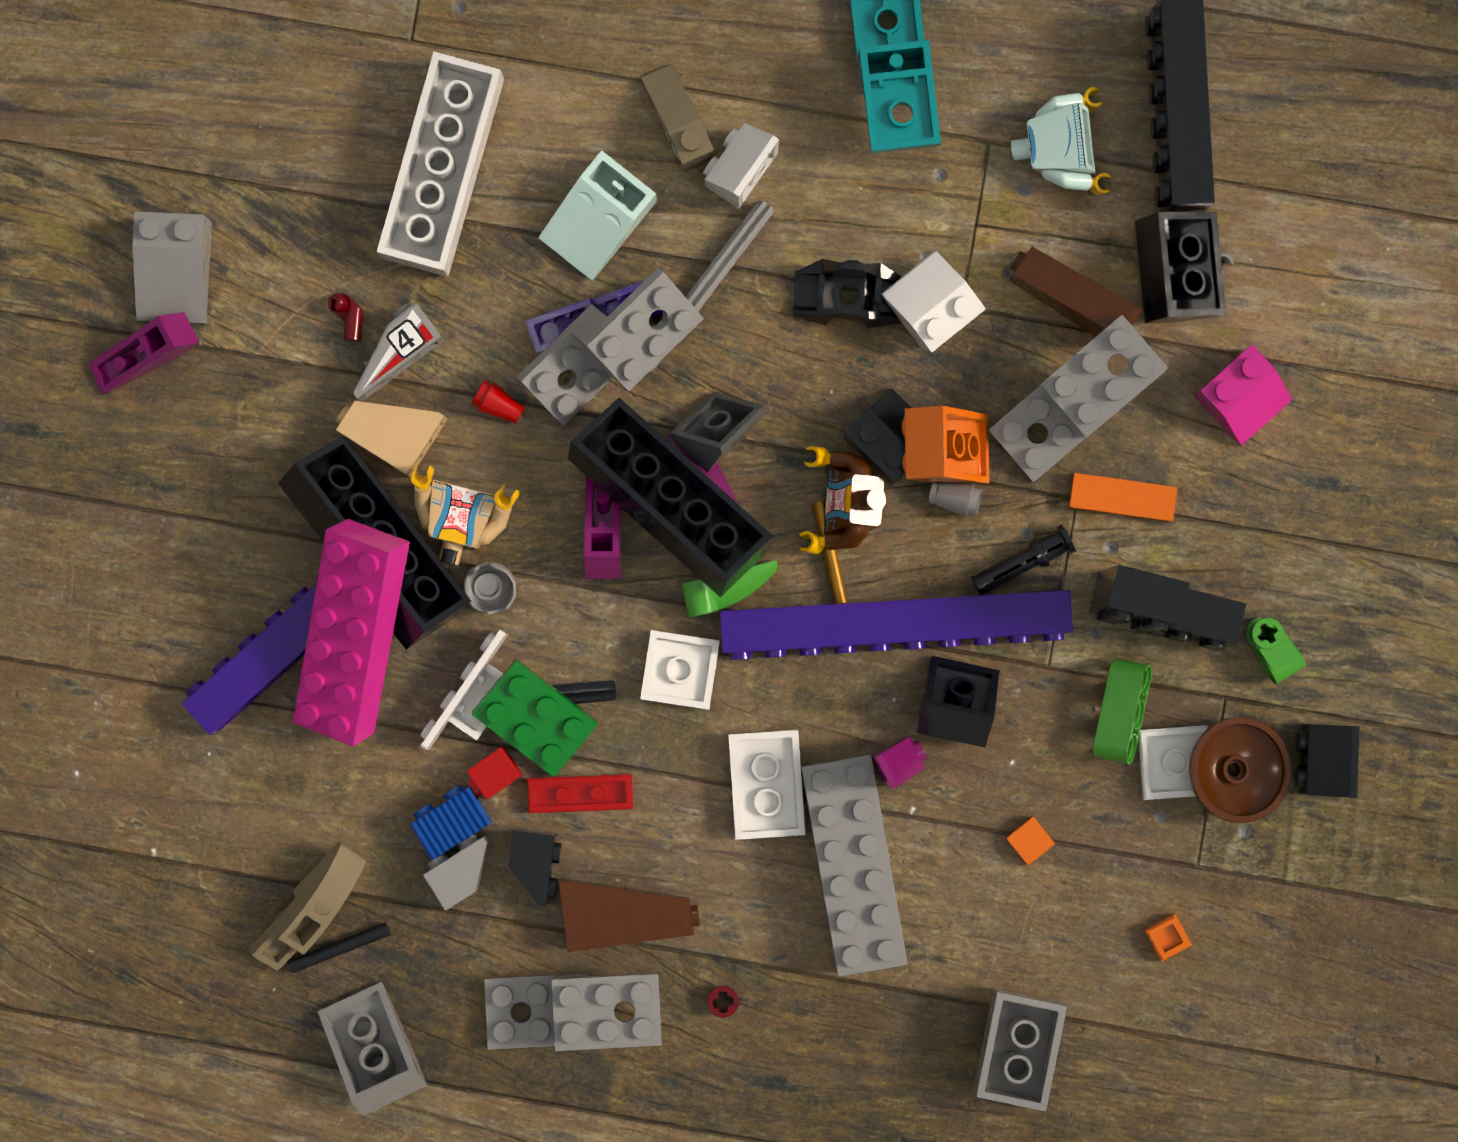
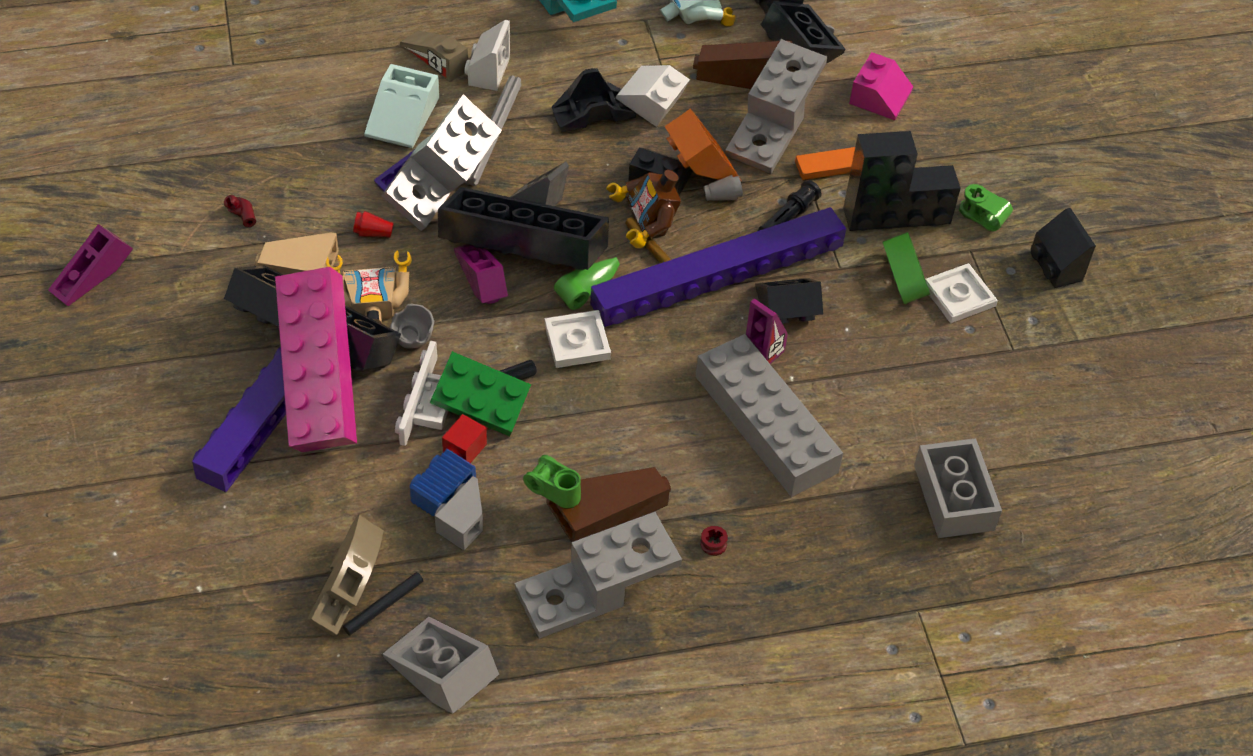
camera: 25 degrees left, 35 degrees down
(171, 265) = (95, 201): light grey slope -> none
(401, 345) = (290, 210): slope -> none
(440, 164) = (279, 109): white brick -> none
(532, 862) = (515, 493): black slope -> none
(562, 887) = (552, 479): none -> bright green piece
(580, 793) = (536, 440): red tile -> none
(766, 784) = (676, 388): white plate -> none
(1030, 840) = (887, 367): orange tile -> none
(1167, 937) = (1019, 395): orange tile -> none
(1260, 772) = (1007, 272): reddish brown dish -> none

